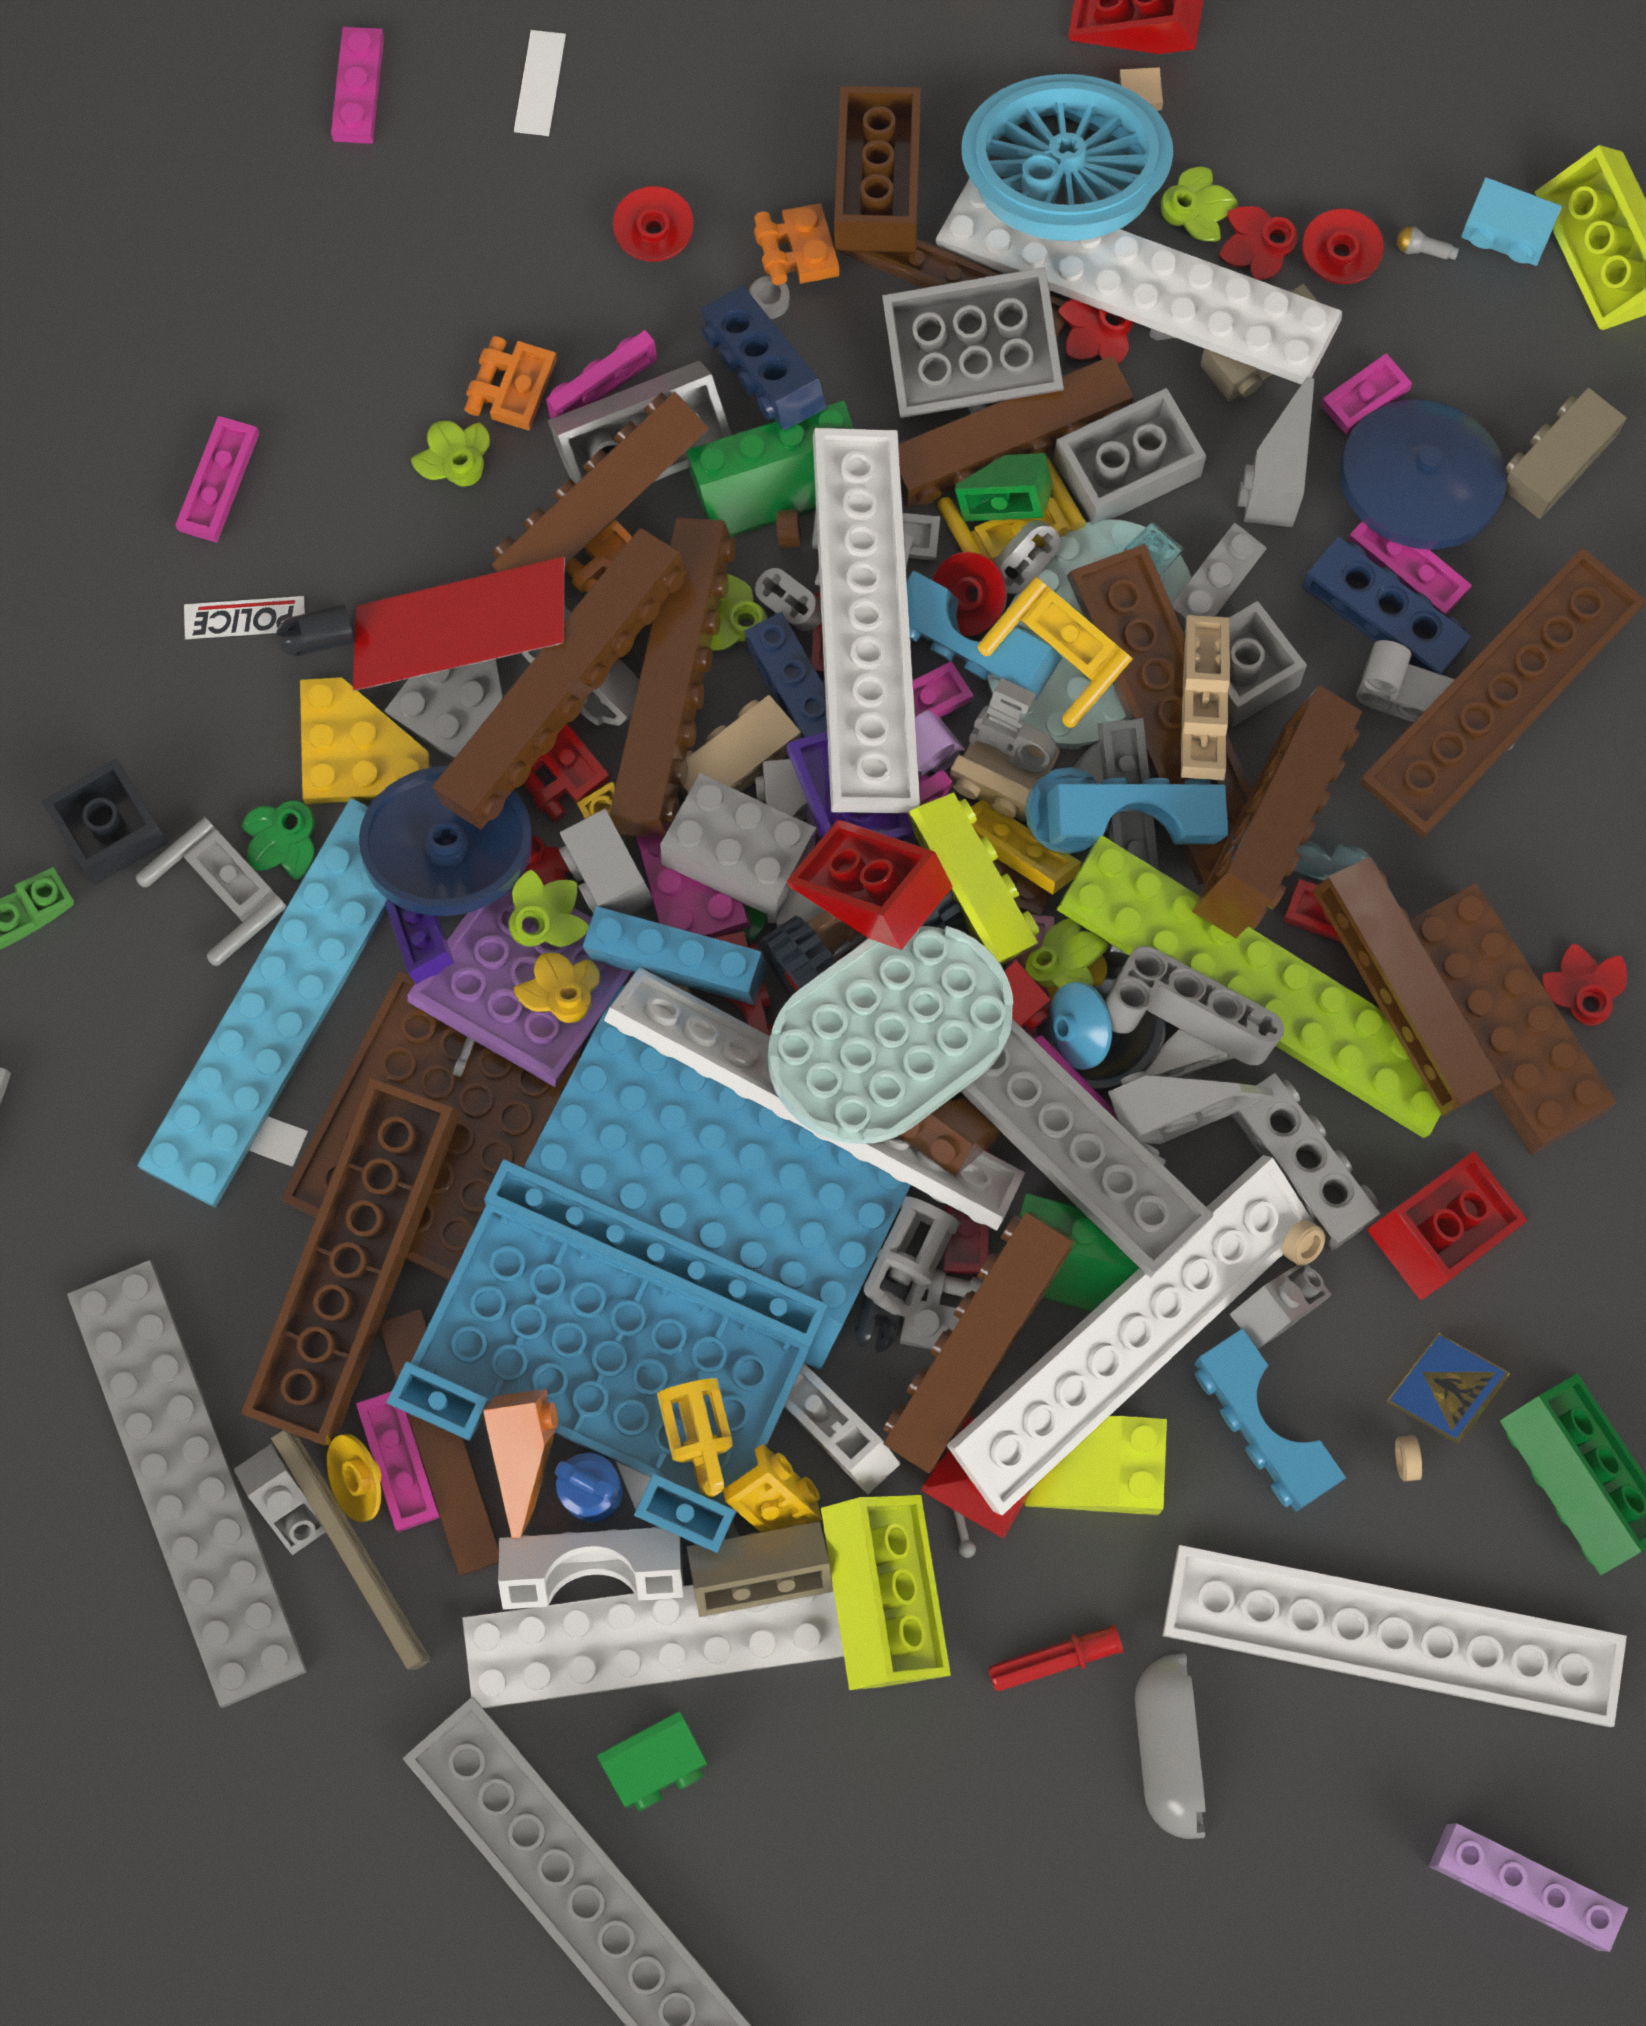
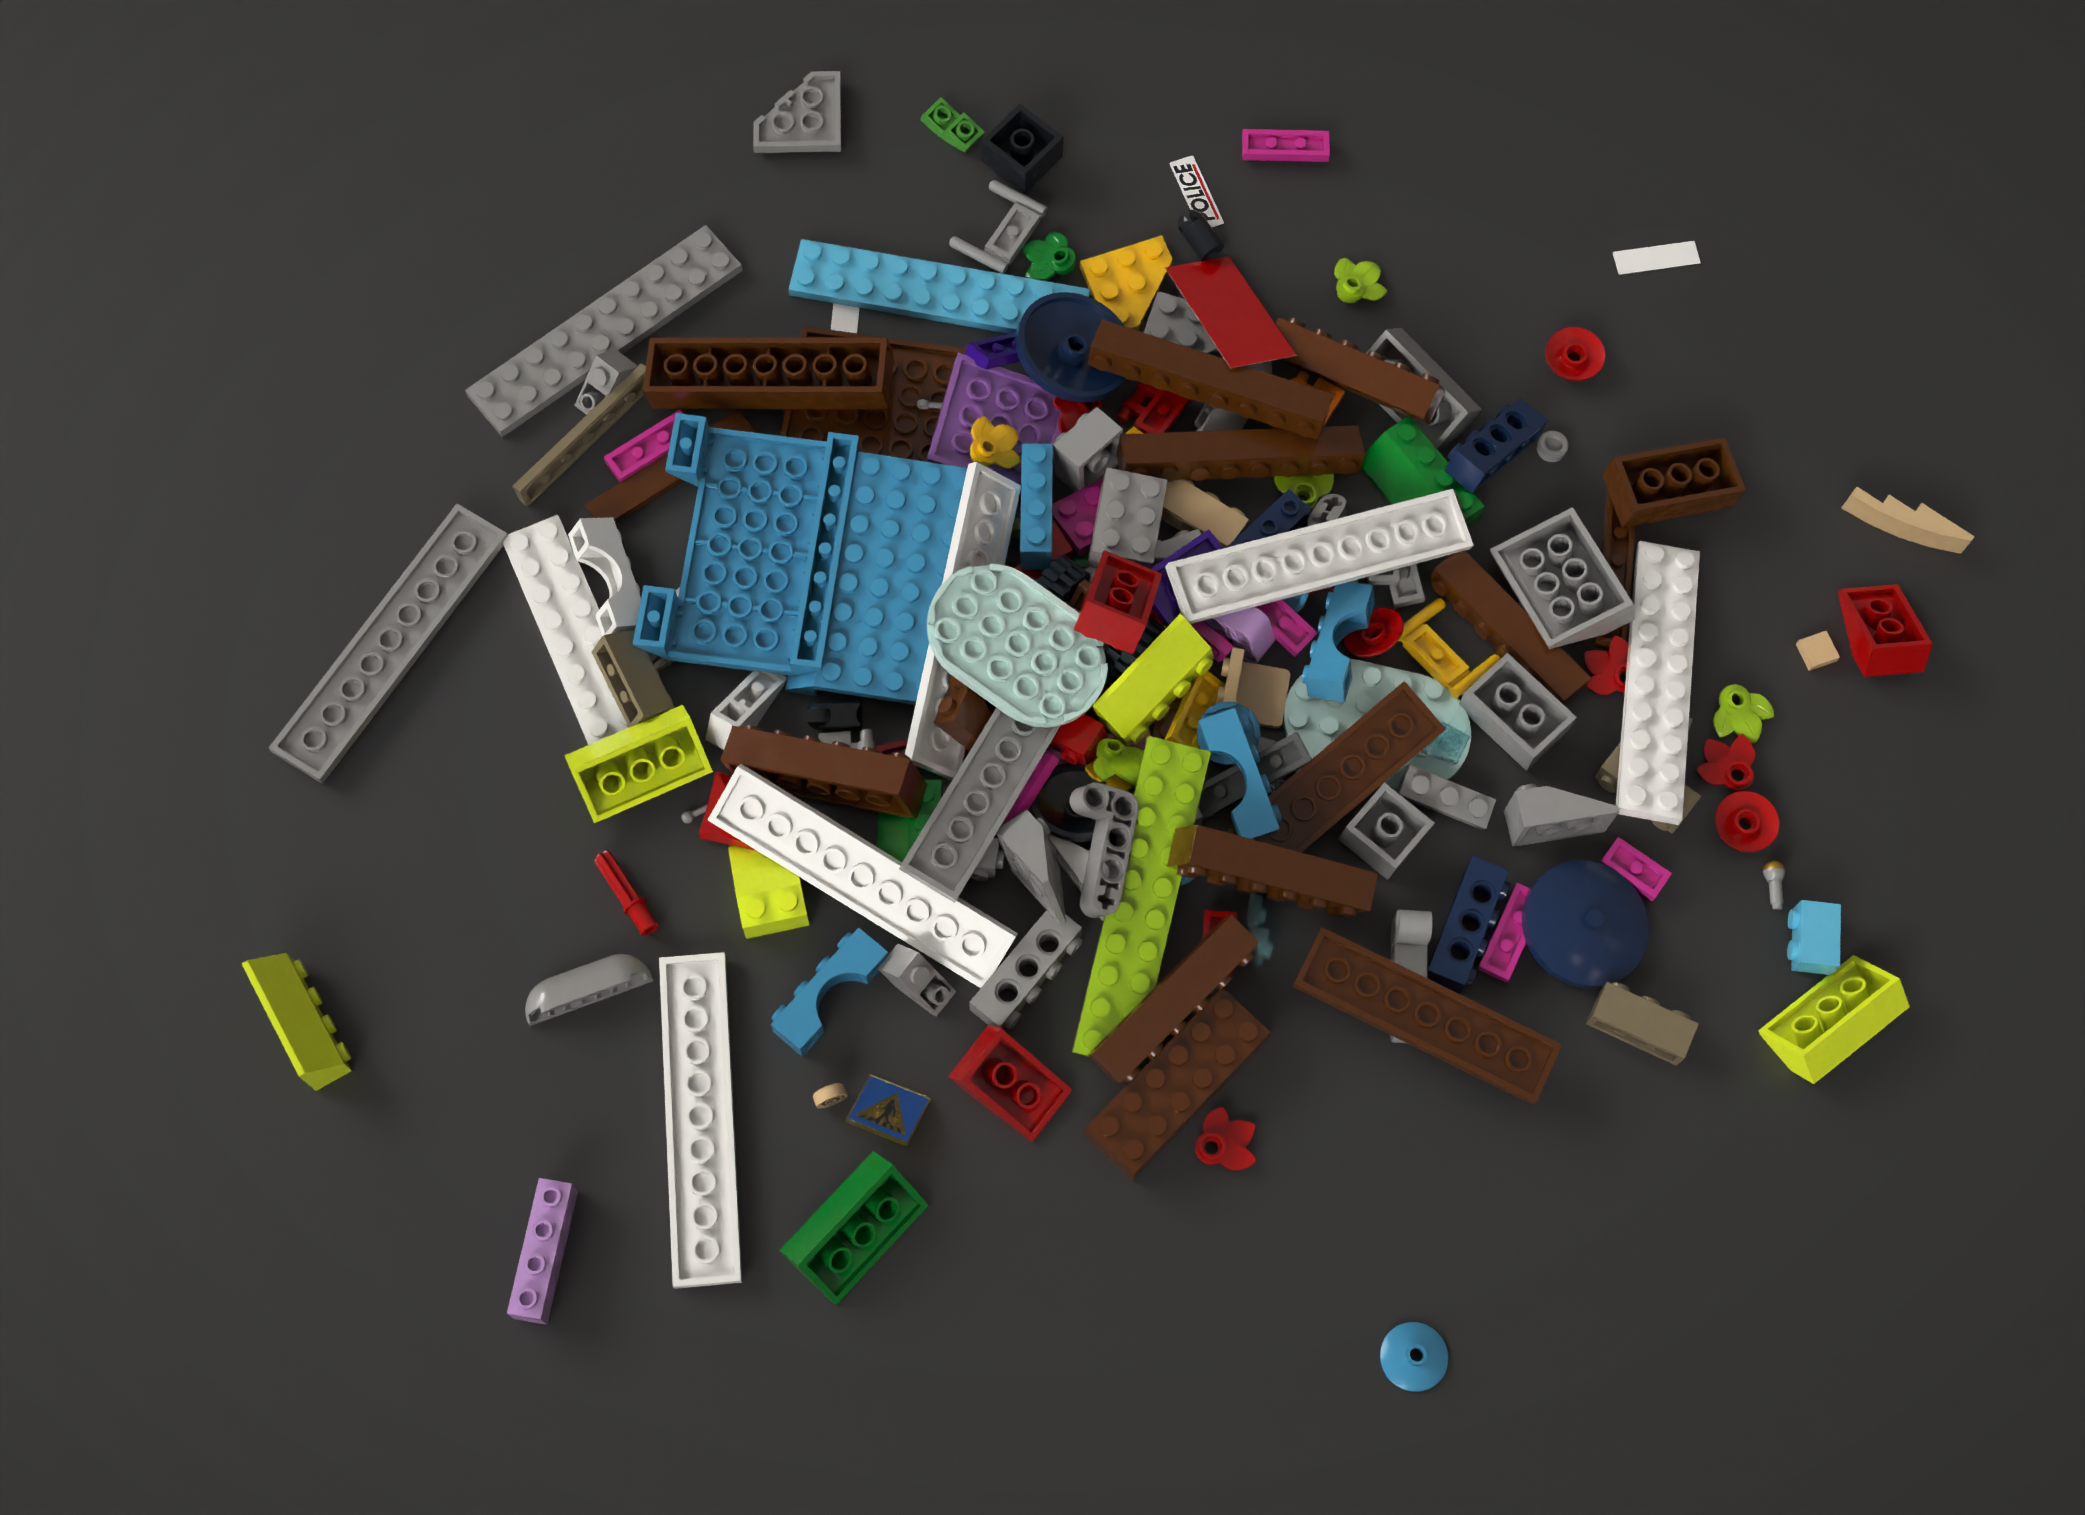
camera: 70 degrees right, 5 degrees down
(354, 1477) = (631, 423): yellow dish -> none
(357, 85) = (1606, 145): dark pink plate -> none
(521, 1440) = (669, 510): slope -> none
(522, 386) = (1423, 308): orange plate -> none
(550, 910) = (1049, 421): lime plate -> none
(589, 1487) = (658, 557): blue piece -> none
(604, 375) = (1449, 355): dark pink plate -> none
(653, 1762) = (490, 651): green slope -> none
(700, 1444) = (701, 614): yellow piece -> none
(773, 1494) = (687, 675): yellow bracket -> none
(788, 528) = (1380, 500): reddish brown axle -> none
(808, 240) = (1593, 461): orange plate -> none
(904, 1266) = (869, 716): light grey piece -> none
(1002, 727) = (1276, 673): light grey piece -> none
(1007, 489) = (1461, 635): green slope -> none
(1025, 556) = (1412, 667): light grey beam -> none
(1067, 159) = (1734, 604): medium azure piece -> none
(1069, 635) = (1354, 694): yellow plate -> none
(1080, 1025) = (1069, 778): dark azure dish -> none
(1205, 697) = (1342, 799): tan slope -> none
(1303, 1242) = (965, 982): tan tile -> none

